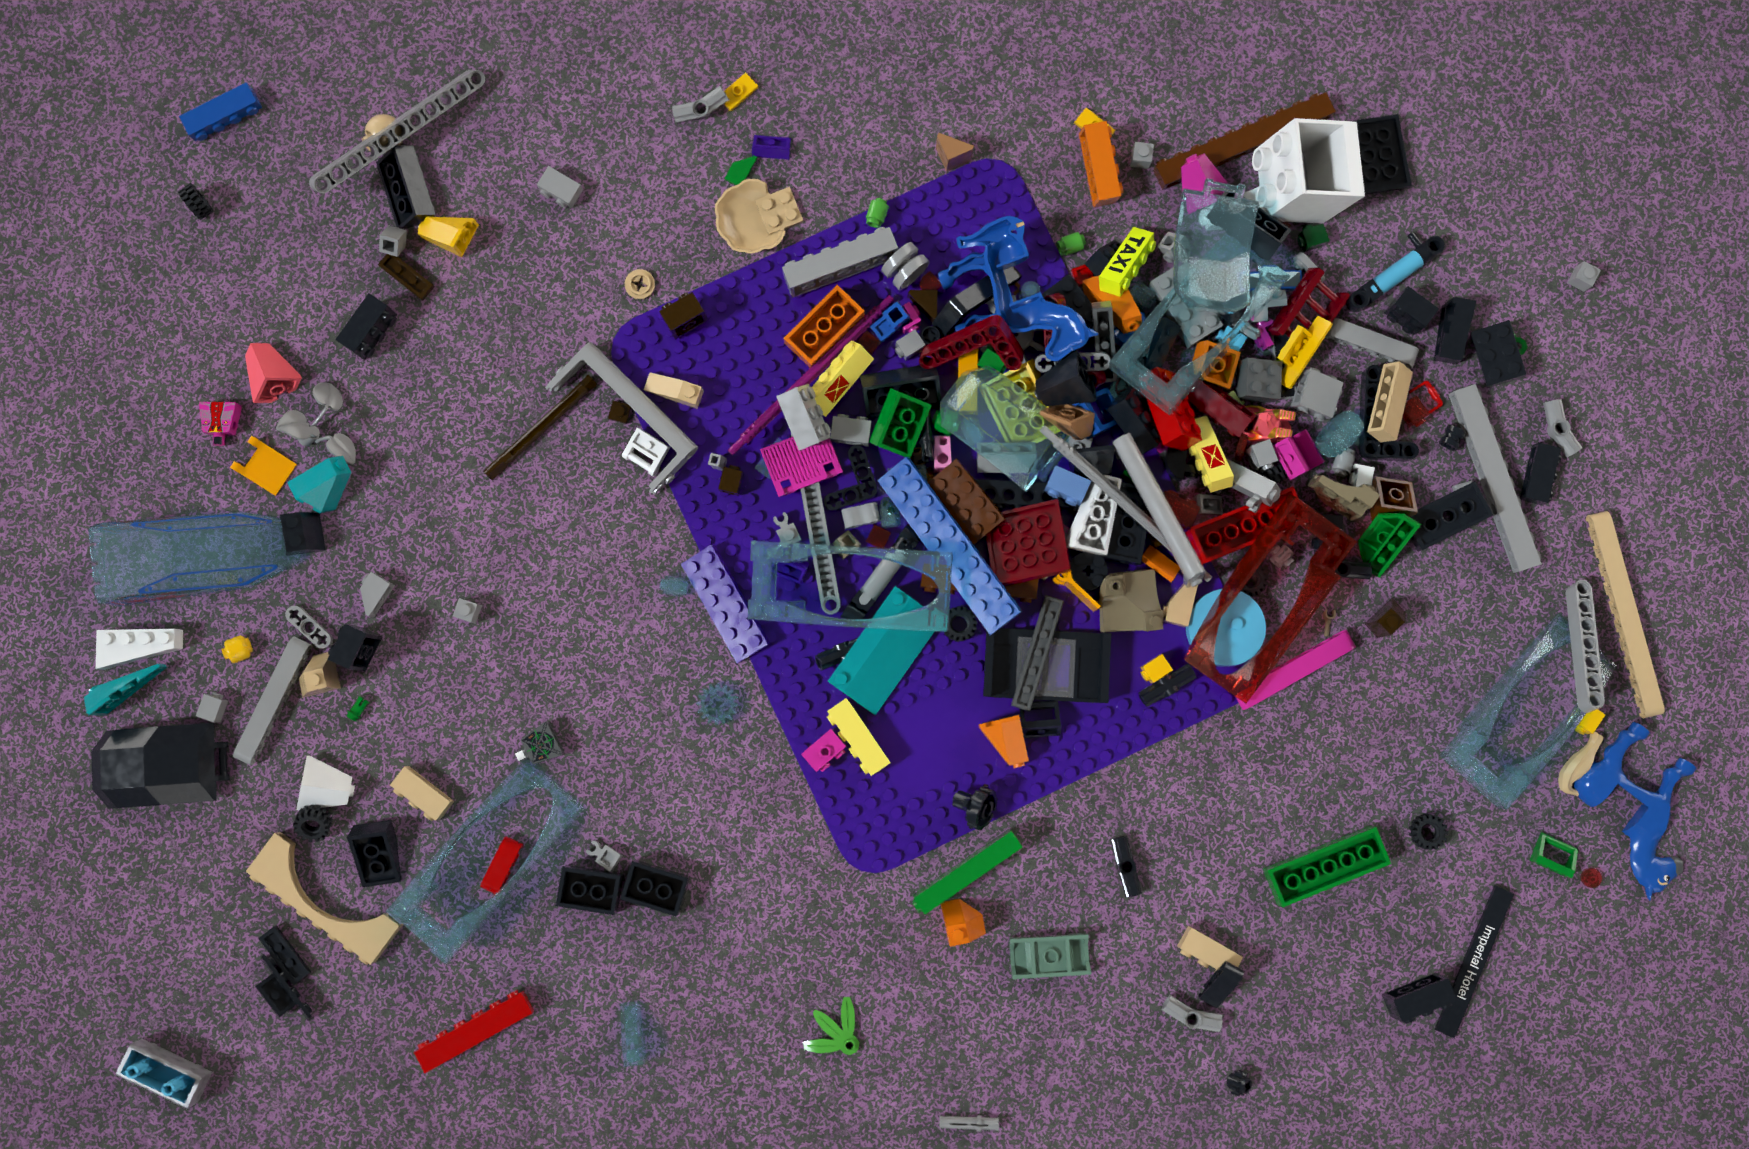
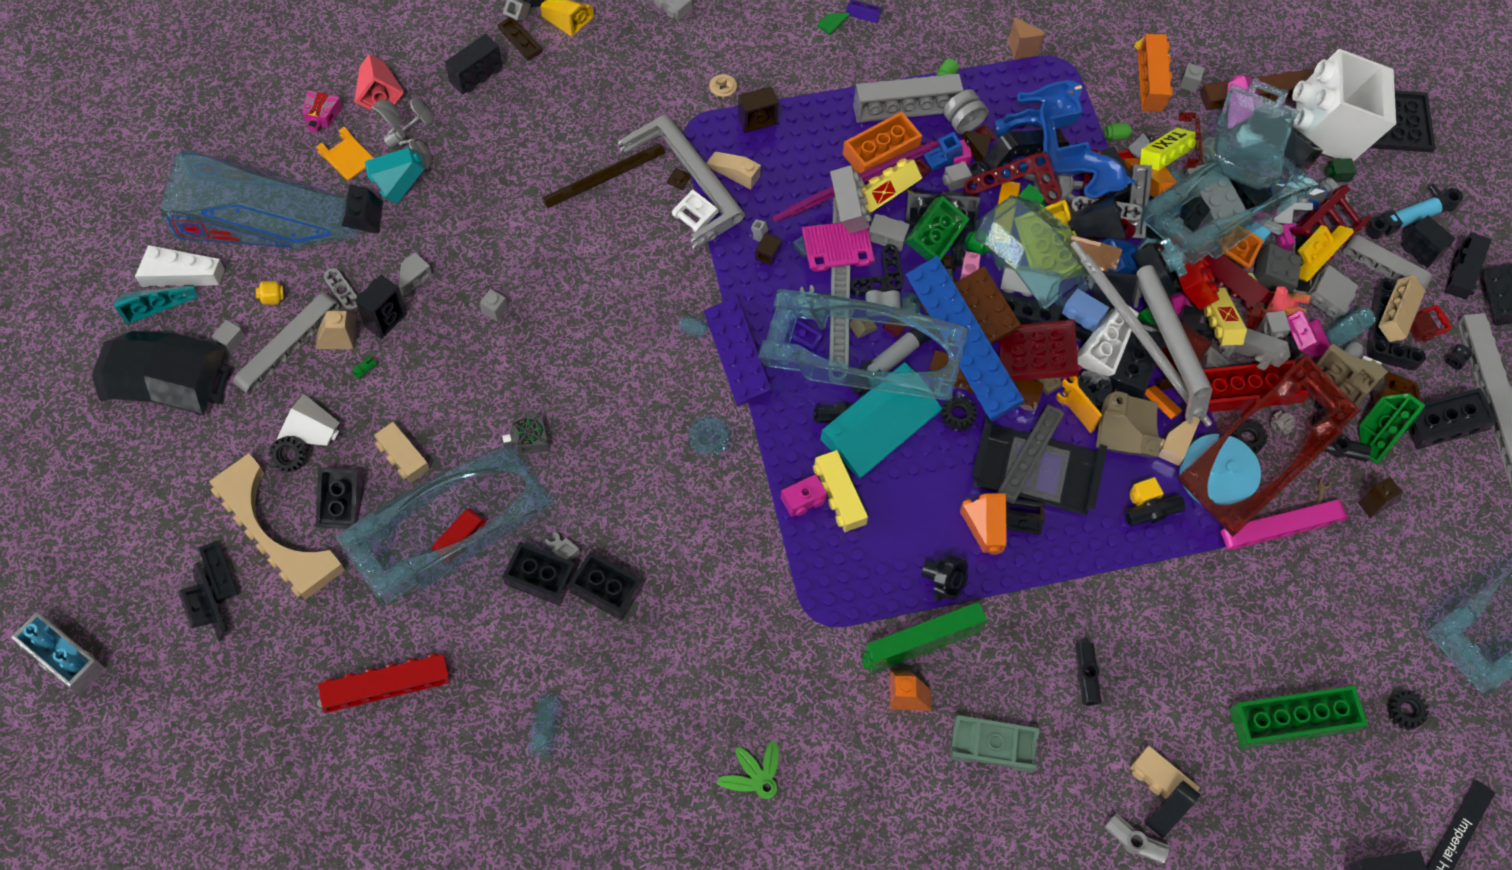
camera: 10 degrees right, 20 degrees down
(753, 217) = (836, 56): tan animal -> none
(1144, 206) = (1187, 117): none -> clear red piece
(1148, 414) = (1173, 257): none -> clear light blue gear

